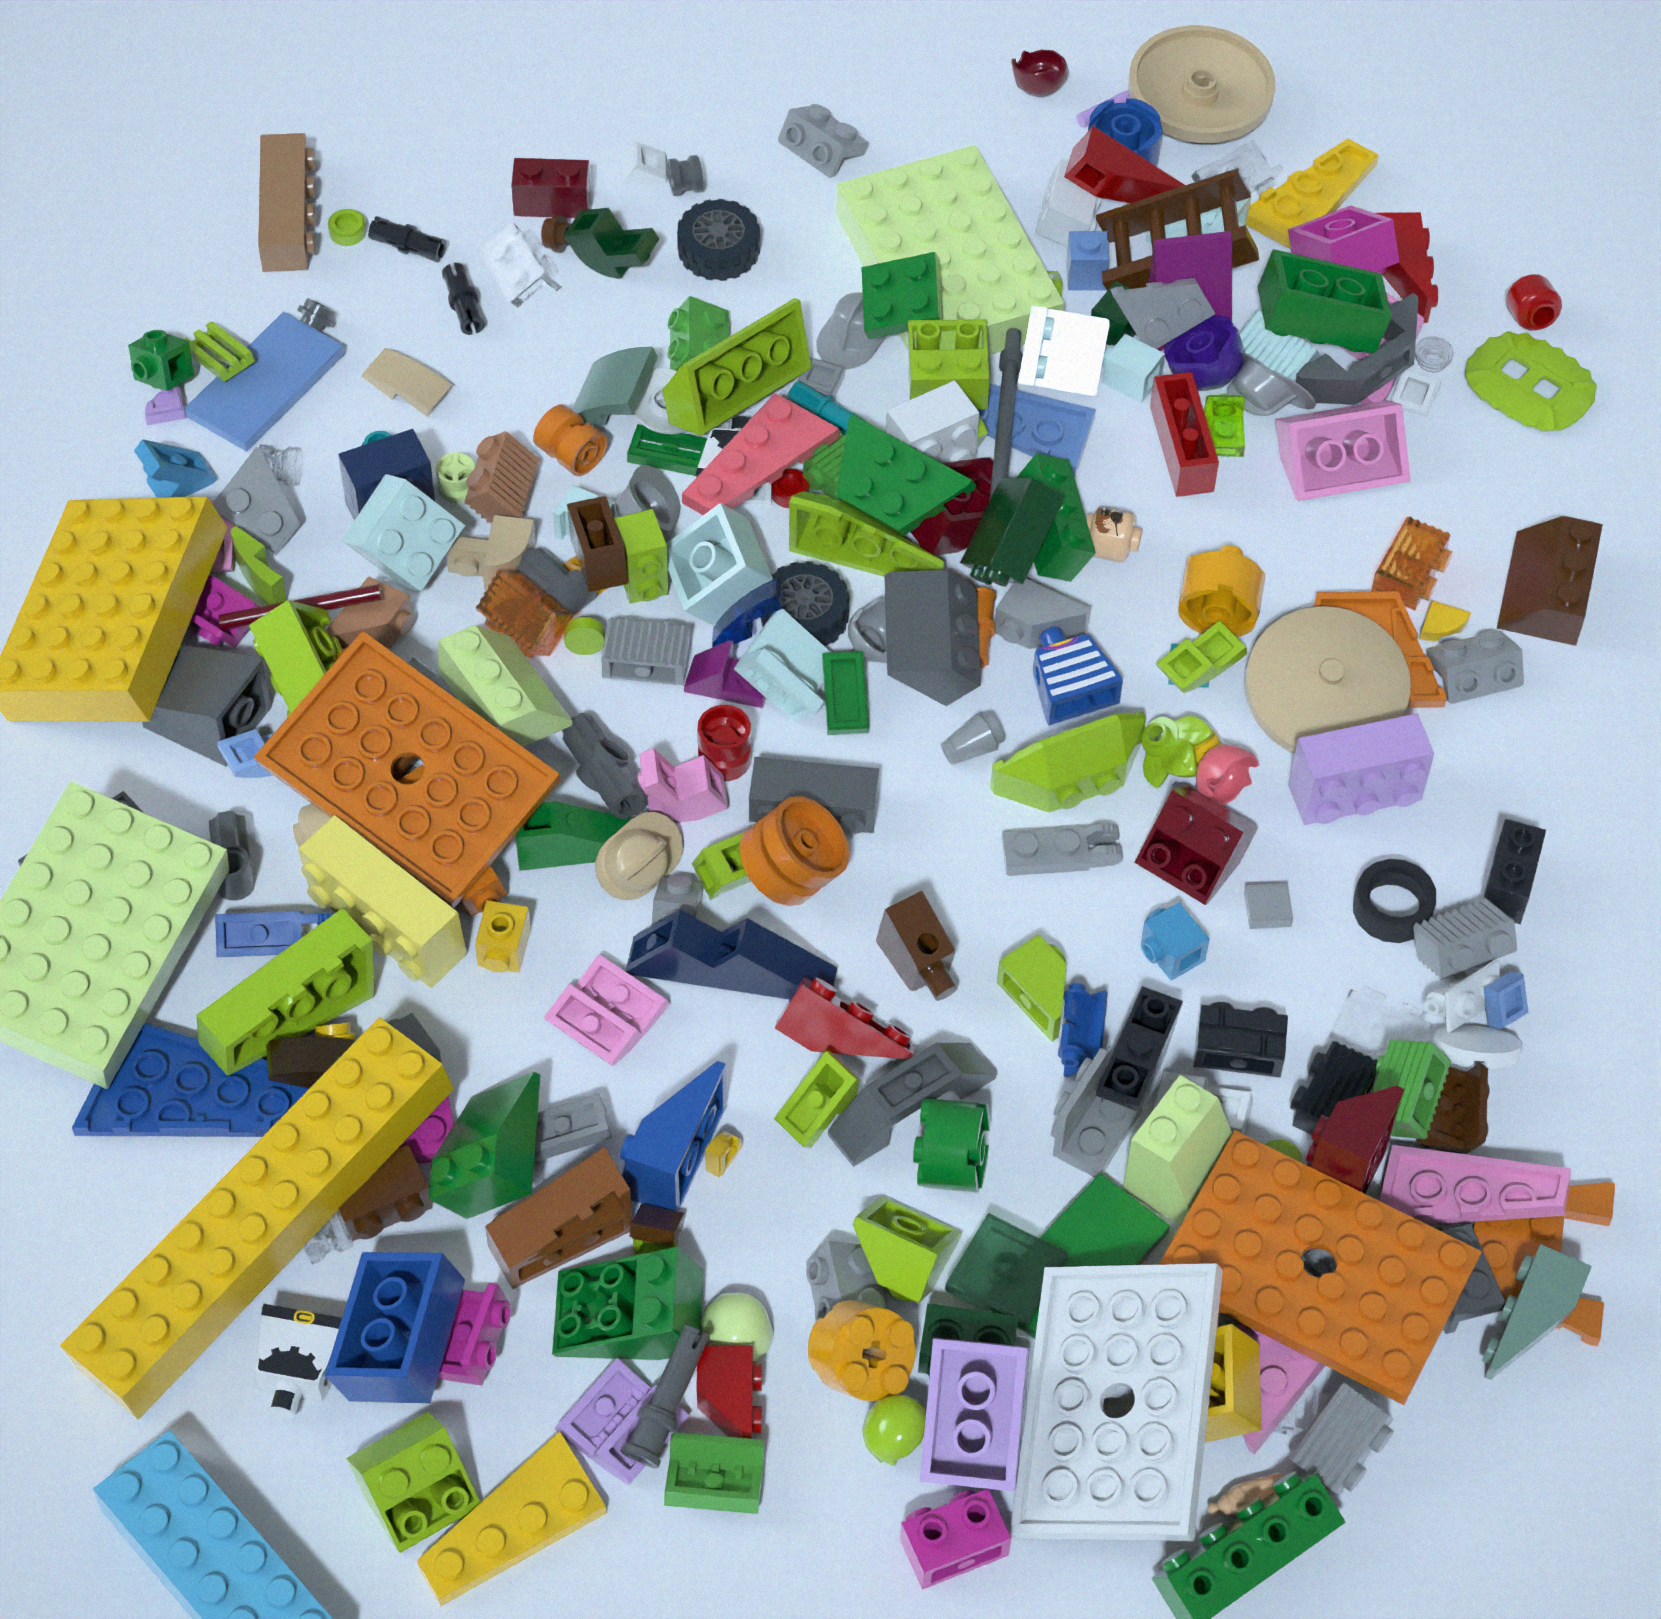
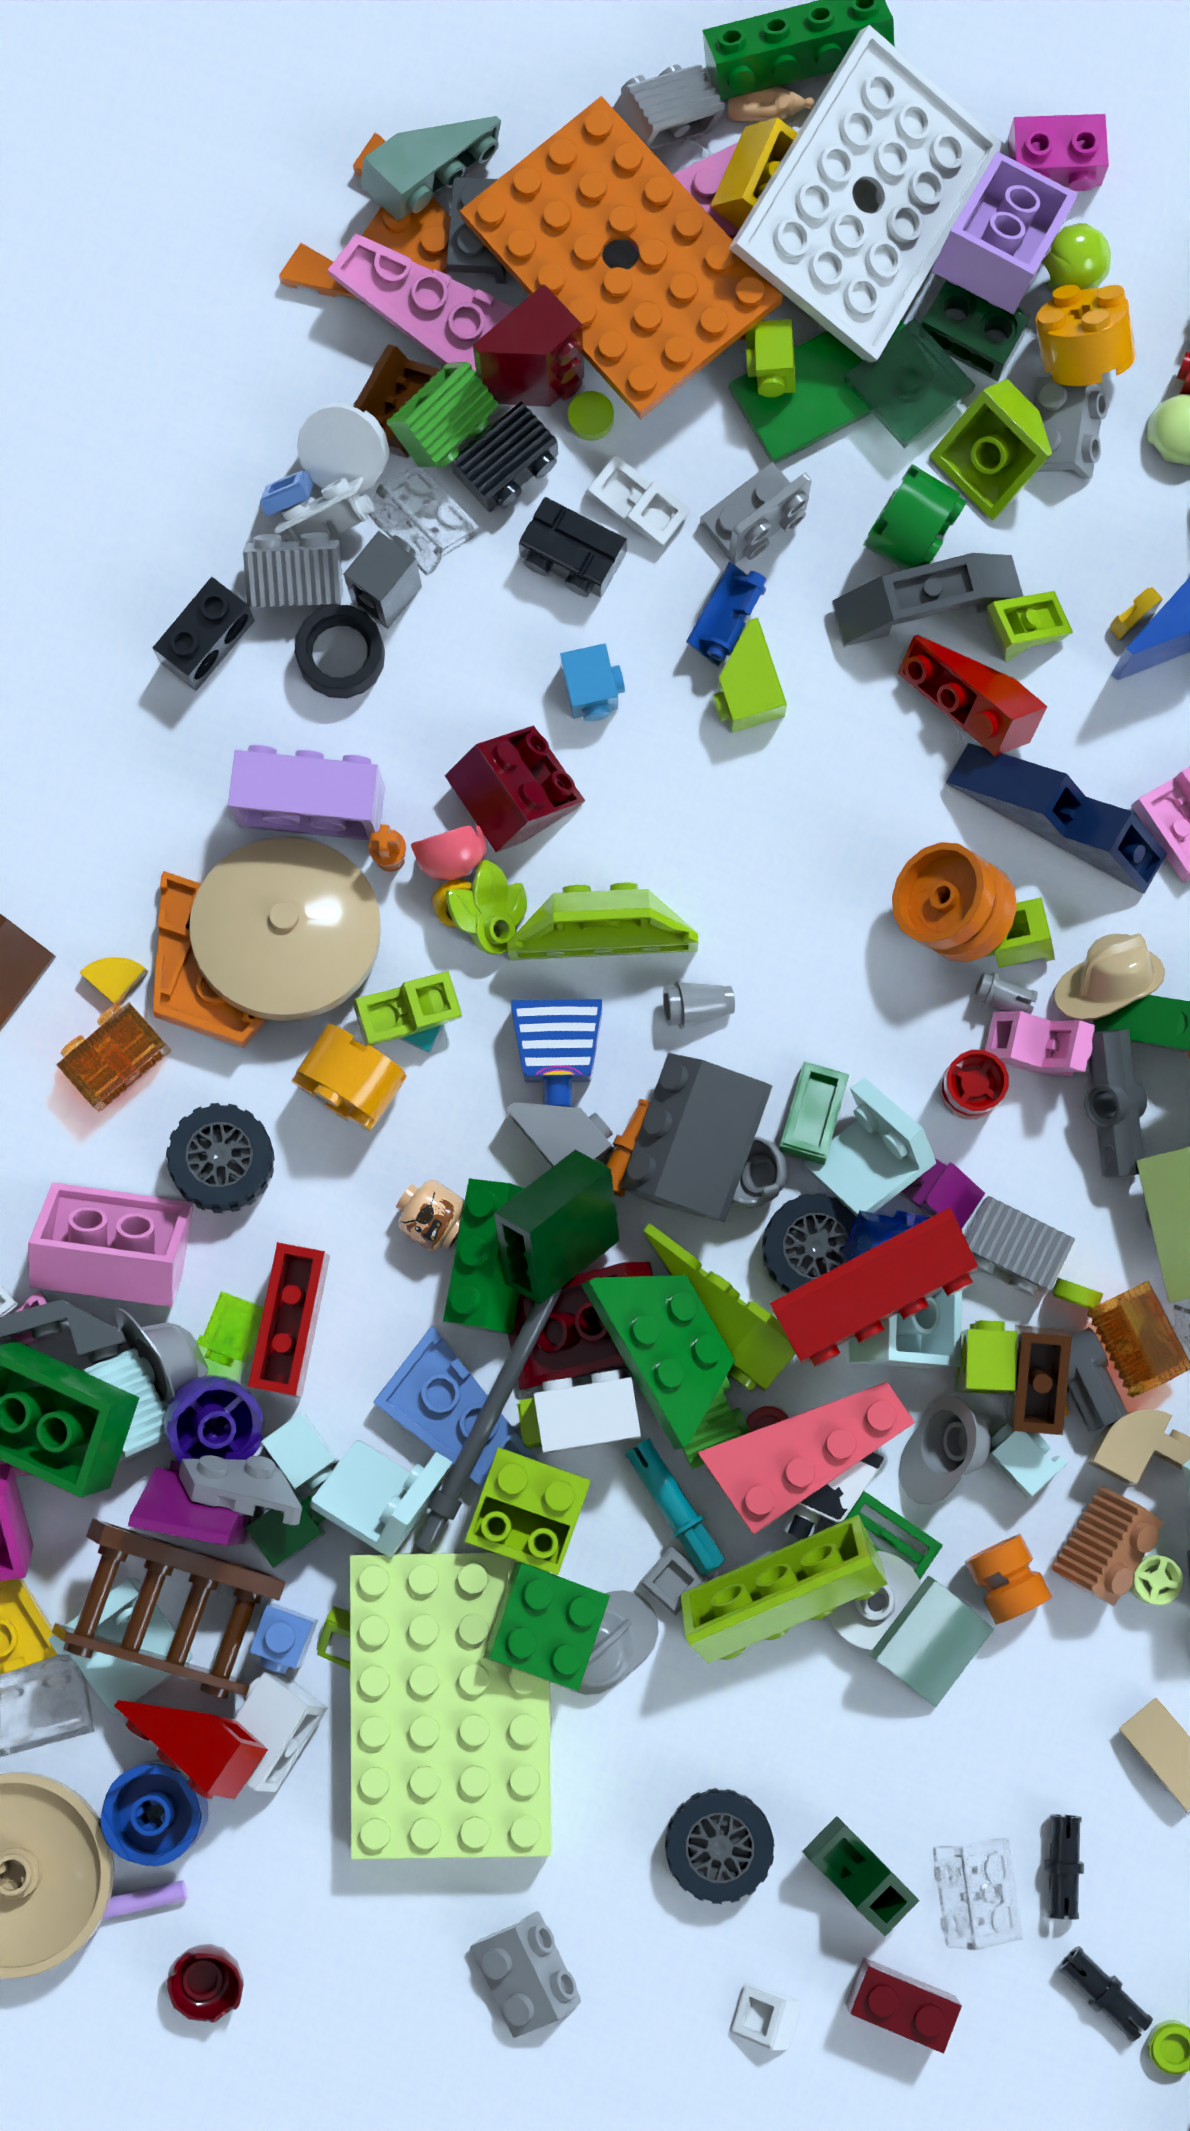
camera: 155 degrees left, 25 degrees up
(553, 233) = (918, 1929): reddish brown plate -> none
(676, 894) = (1088, 909): light grey bracket -> none
(685, 175) = (725, 1969): dark grey wheel -> none
(695, 329) = (798, 1691): bright green bracket -> none
(722, 822) = (1003, 994): none -> light grey pin
(753, 526) = (875, 1288): none -> red slope
(842, 789) = (898, 989): dark grey brick -> none
(917, 946) = (862, 757): reddish brown torso -> none
(1060, 849) = (660, 842): light grey hinge -> none
(1137, 1236) = (772, 357): none -> lime brick
(1140, 1049) = (686, 556): black slope -> none
(1176, 1149) = (697, 430): yellowish green slope -> none
(1268, 905) = (470, 697): light grey tile -> none
(1276, 756) = (387, 848): none -> orange axle
(1294, 506) = (220, 1158): none -> black wheel
(1386, 946) = (384, 578): none -> dark grey brick
(1478, 665) = (106, 905): light grey bracket -> none

